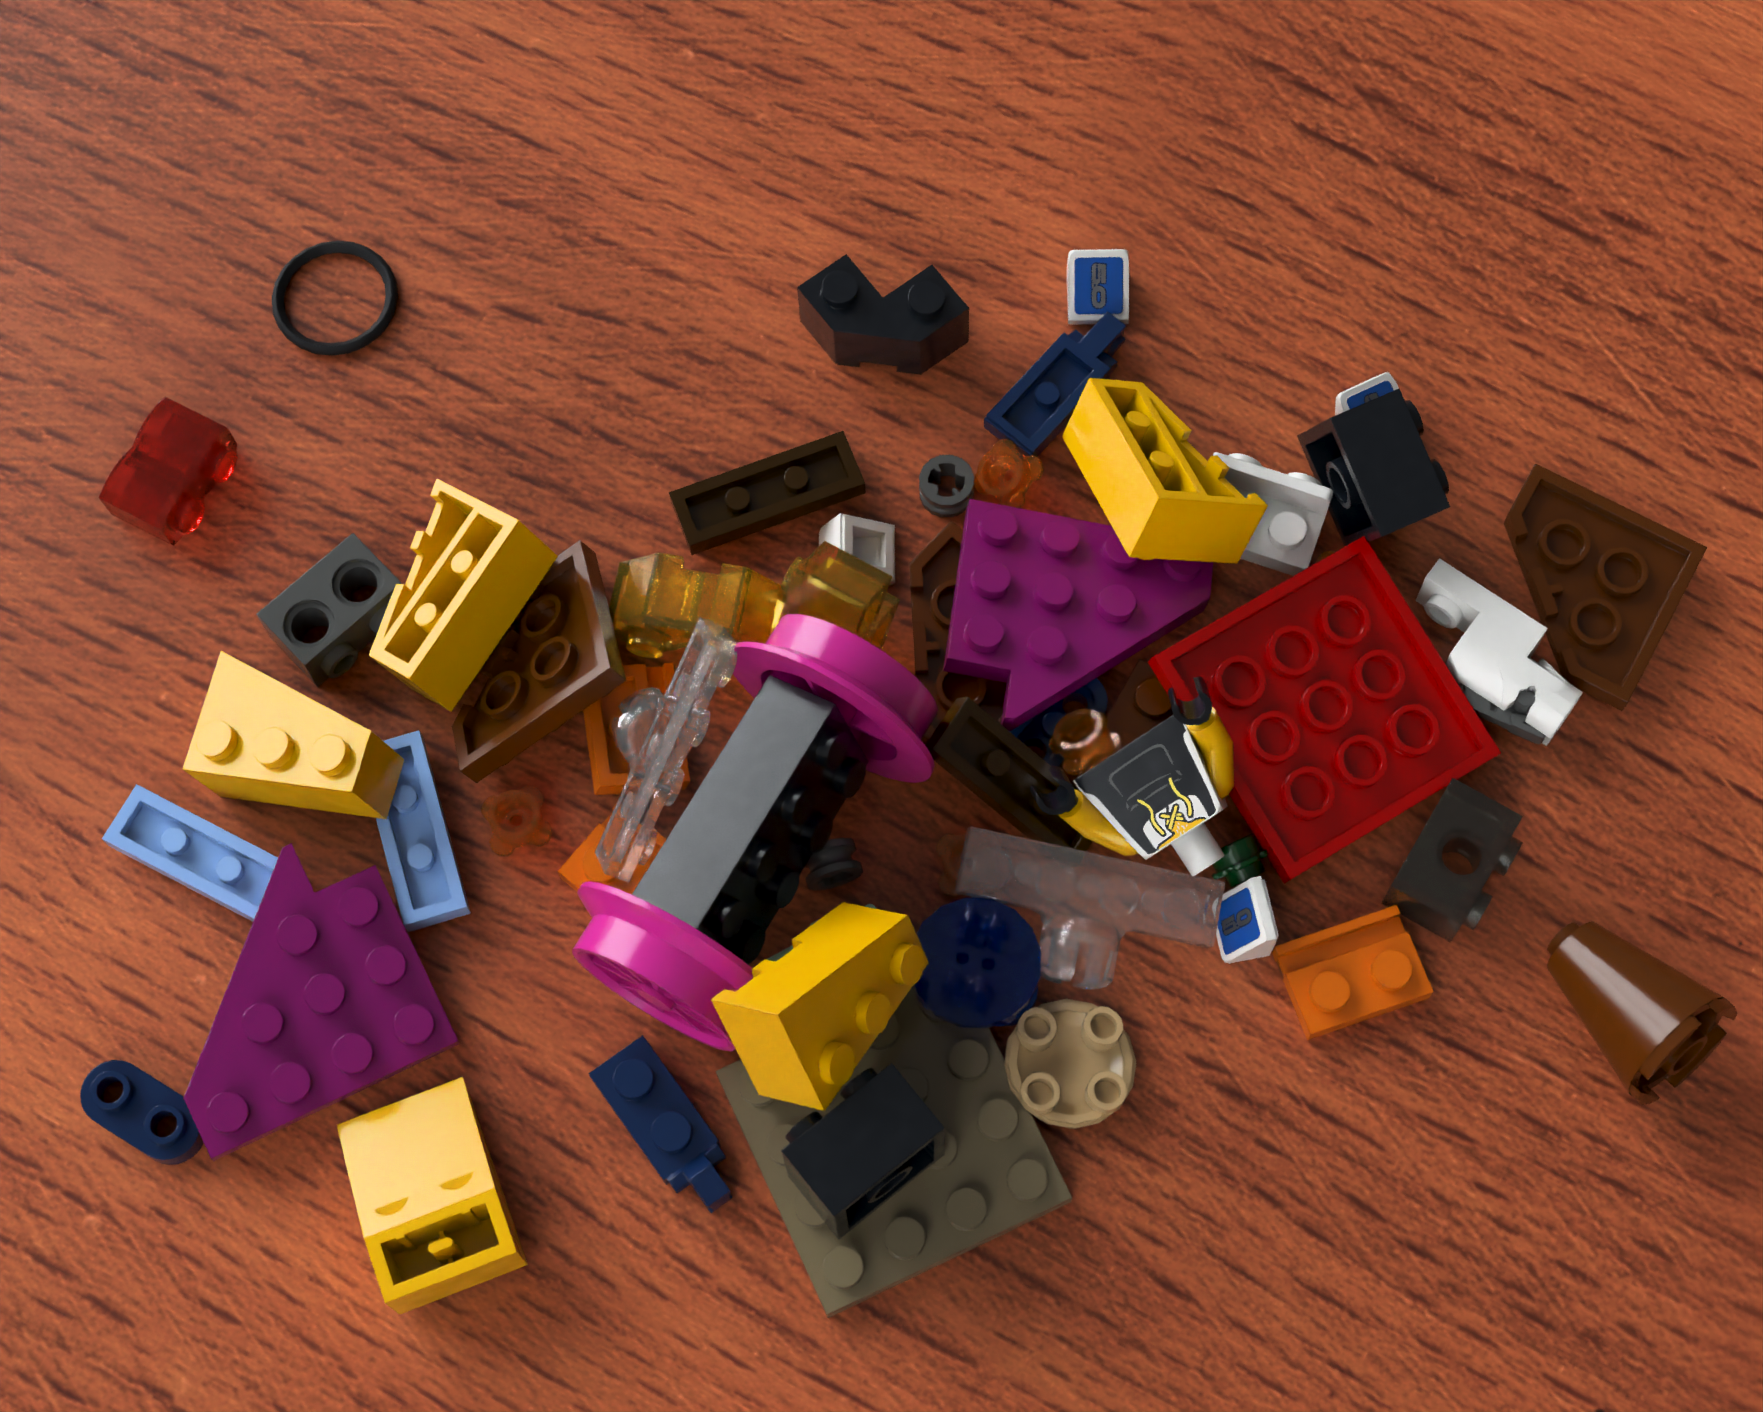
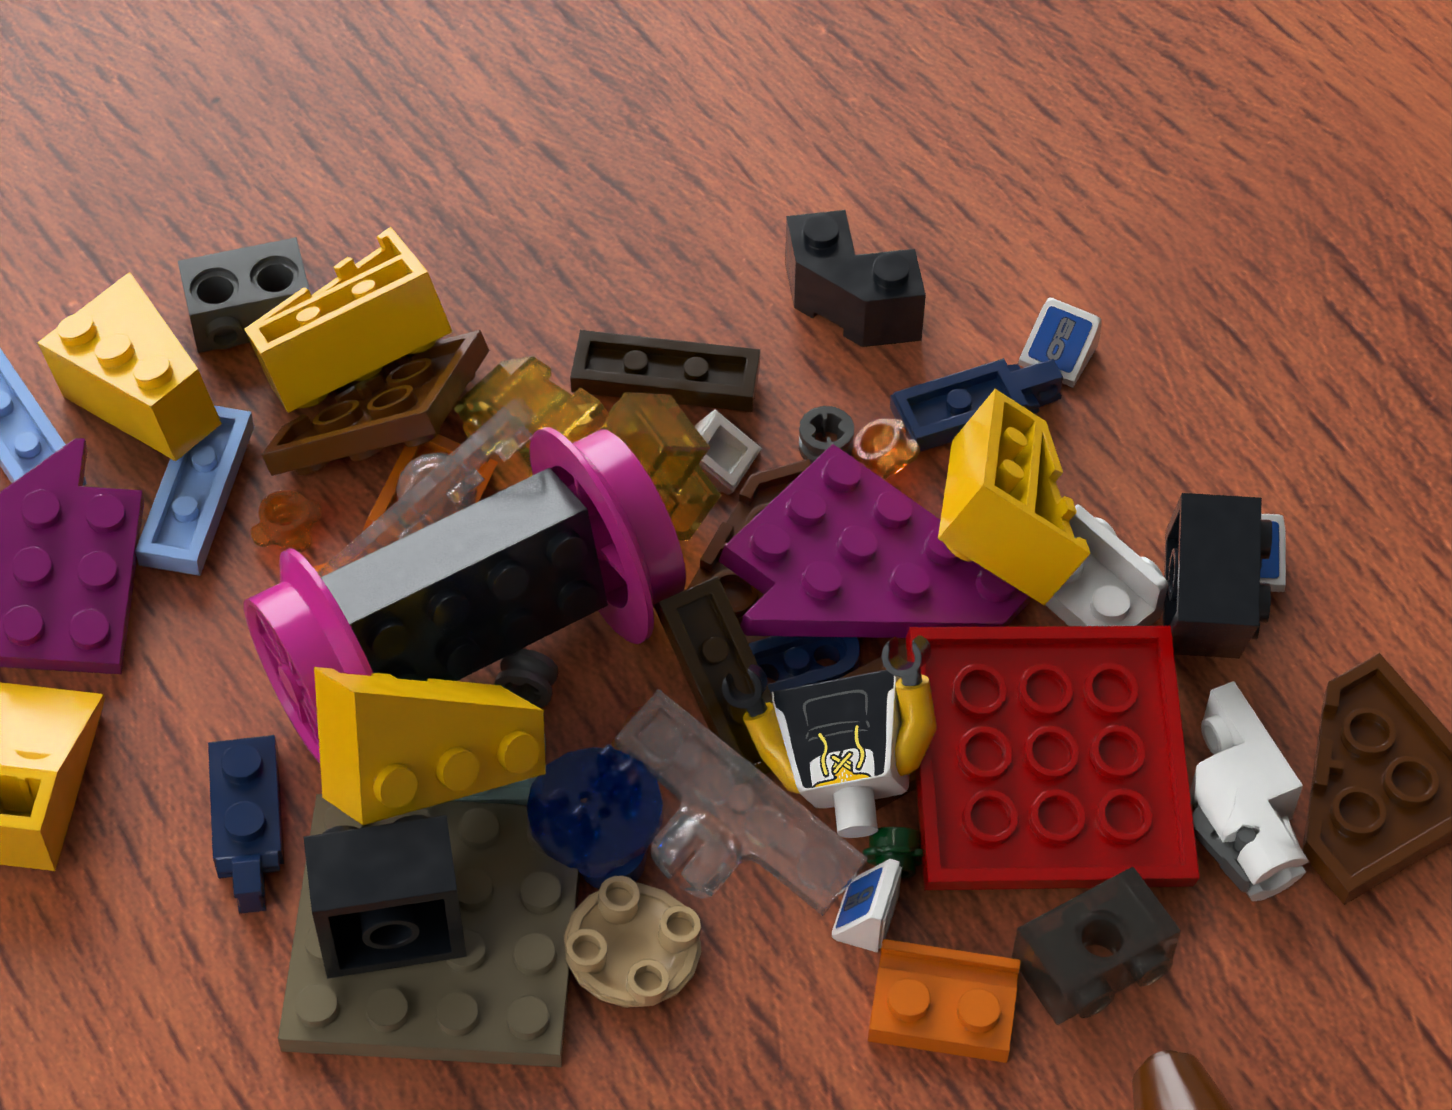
camera: 25 degrees right, 15 degrees down
(170, 471) = (188, 138): clear red brick -> none
(351, 345) = (411, 119): black tyre -> none
(1083, 740) = (807, 667): clear orange plate -> none

